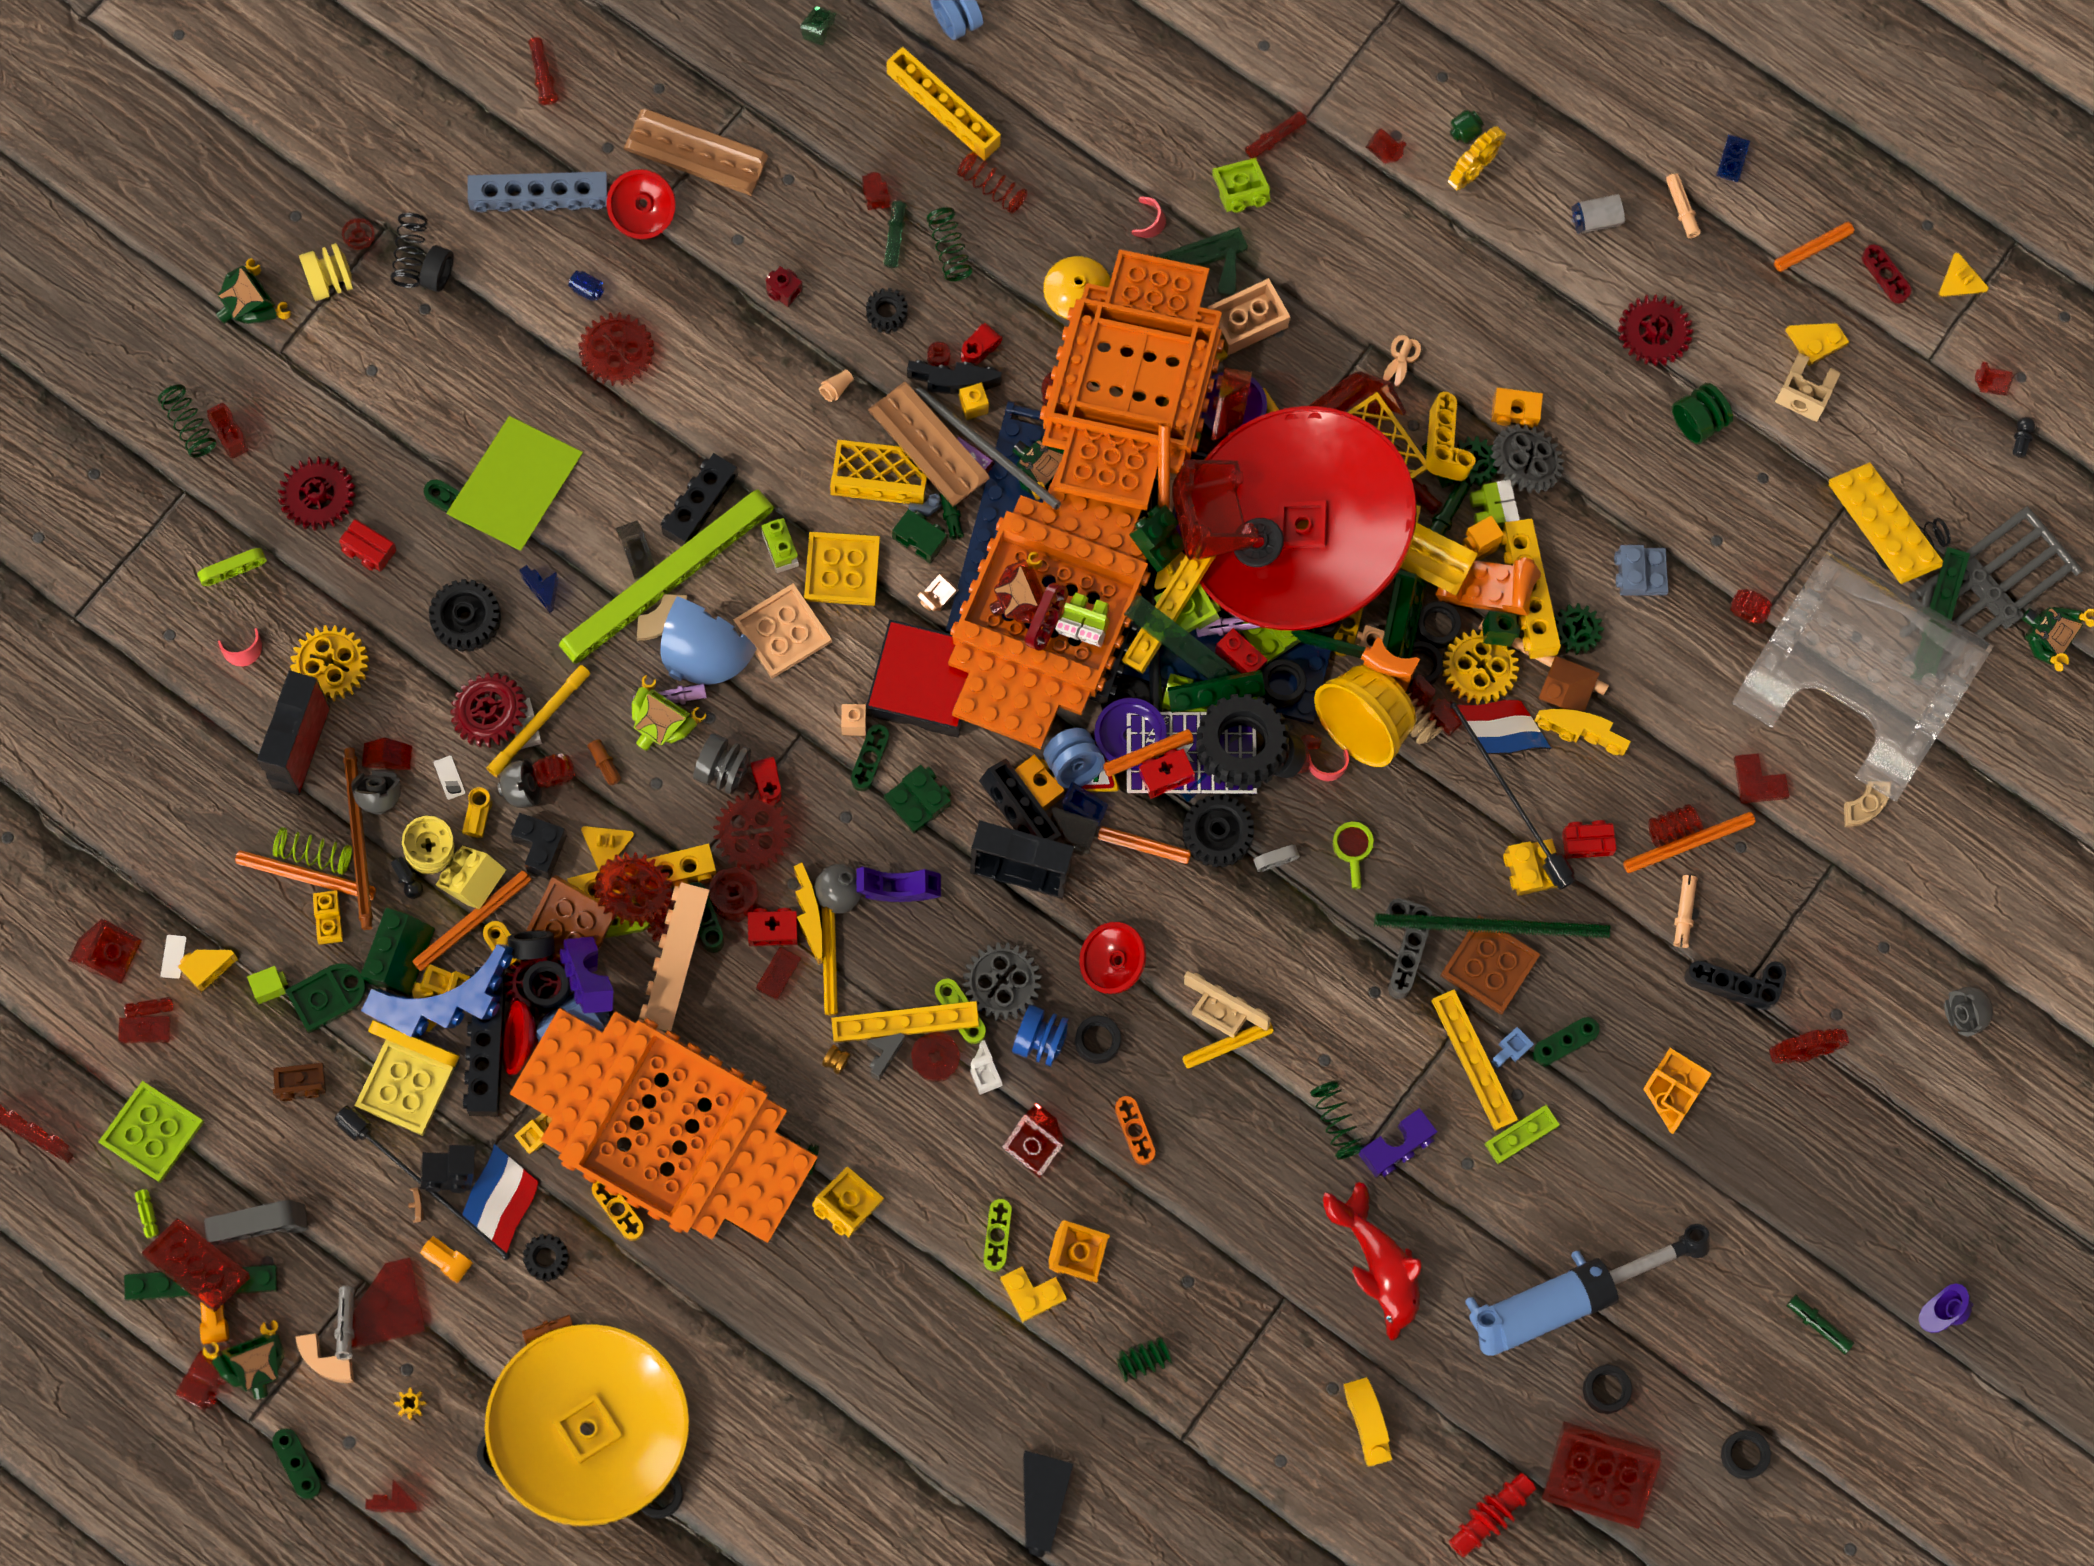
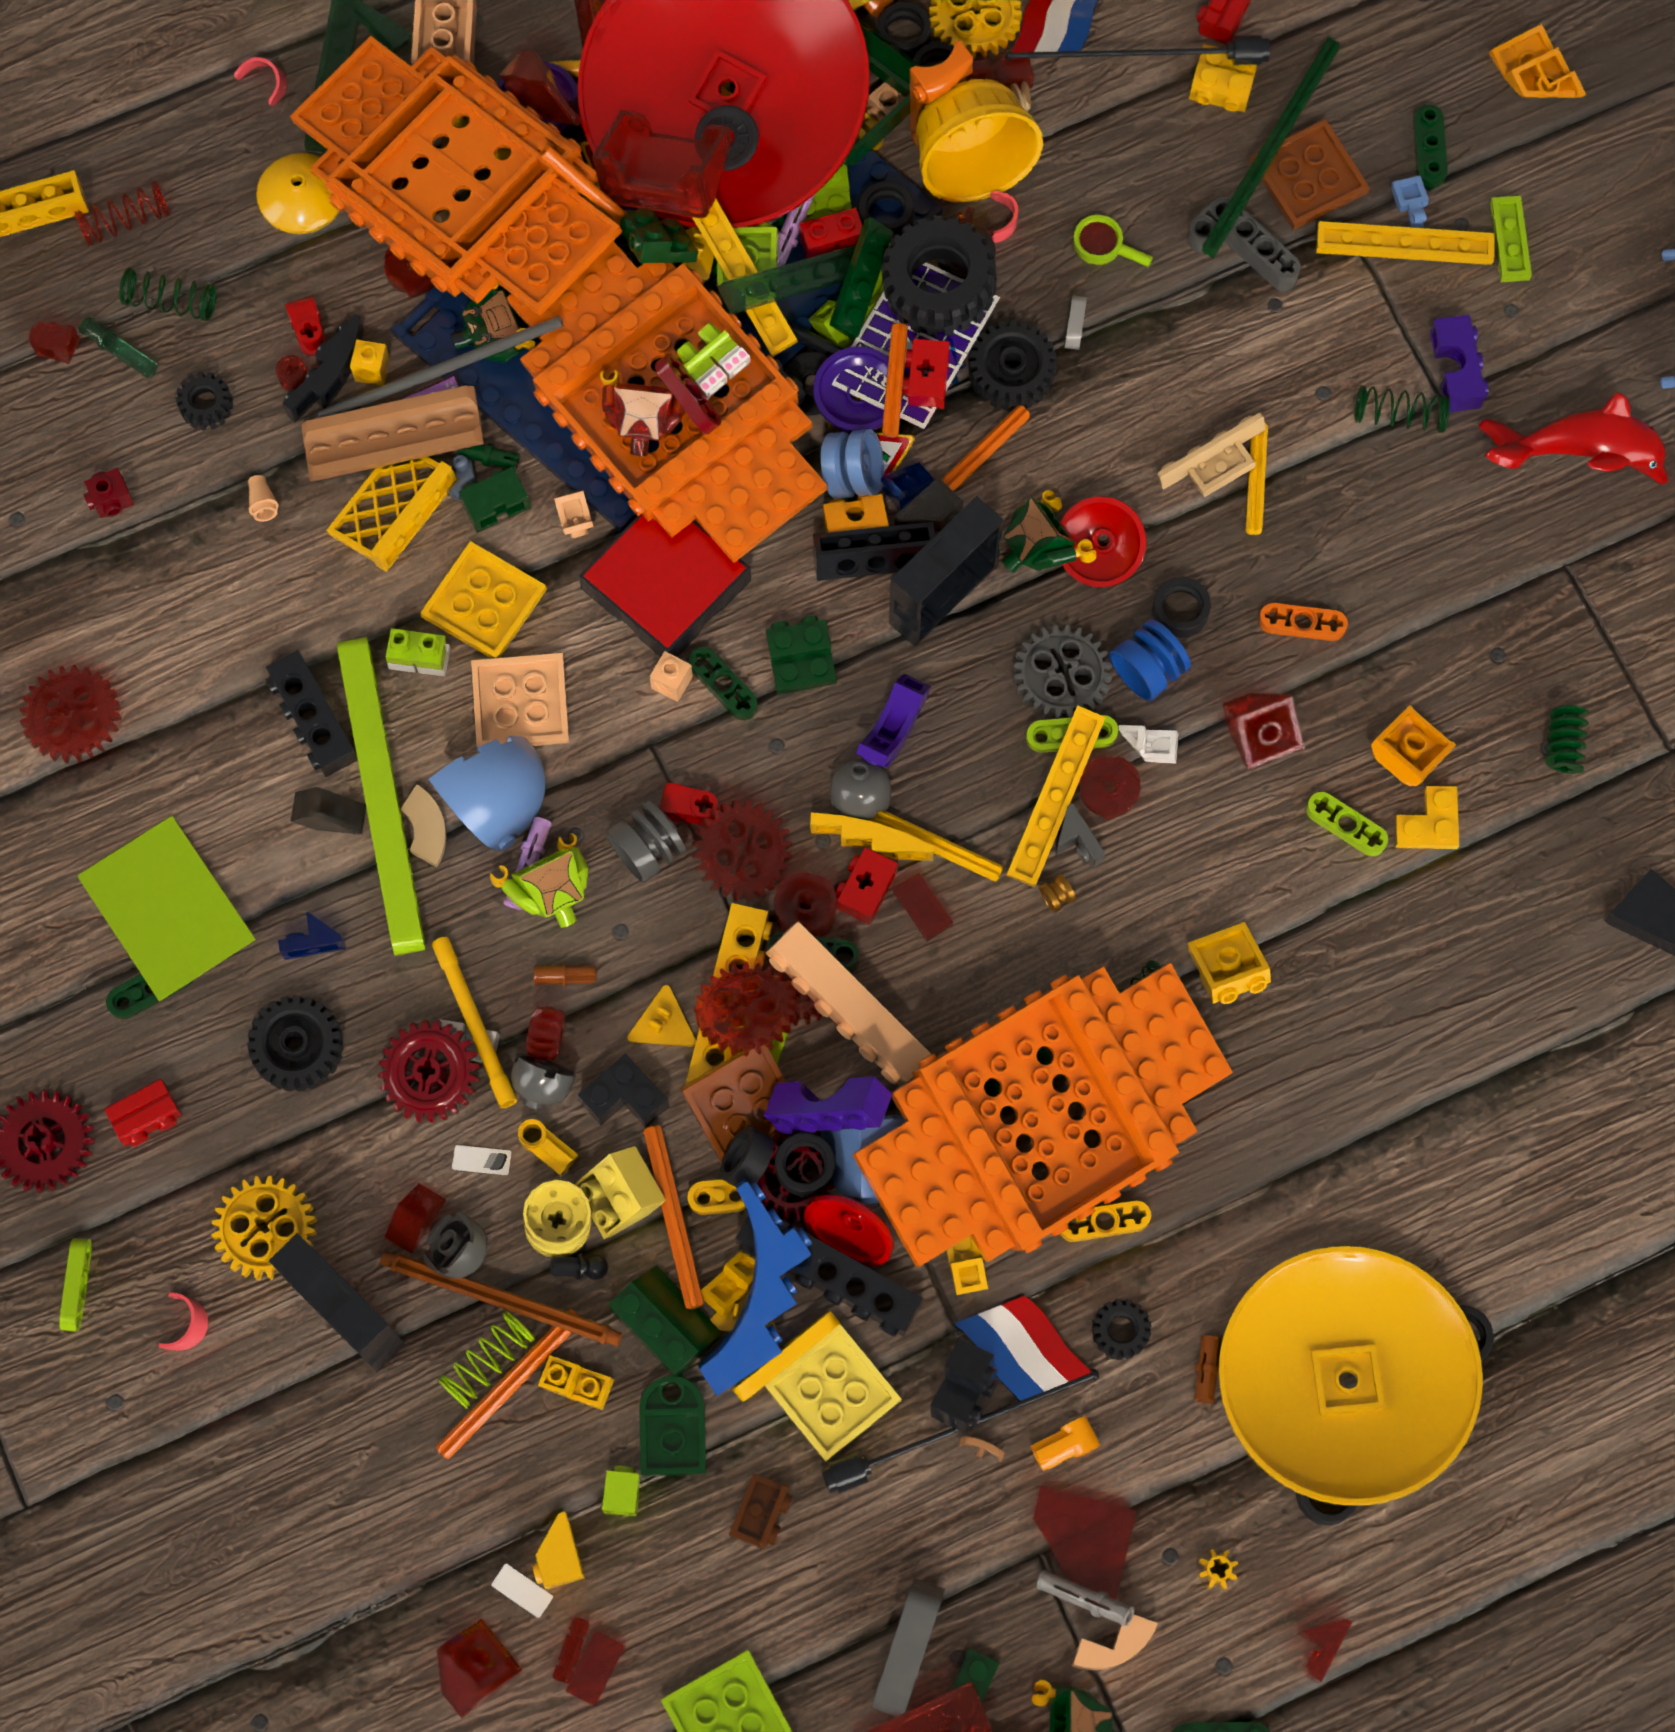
camera: 55 degrees left, 0 degrees up
(1092, 913) = (1040, 538): none -> torso

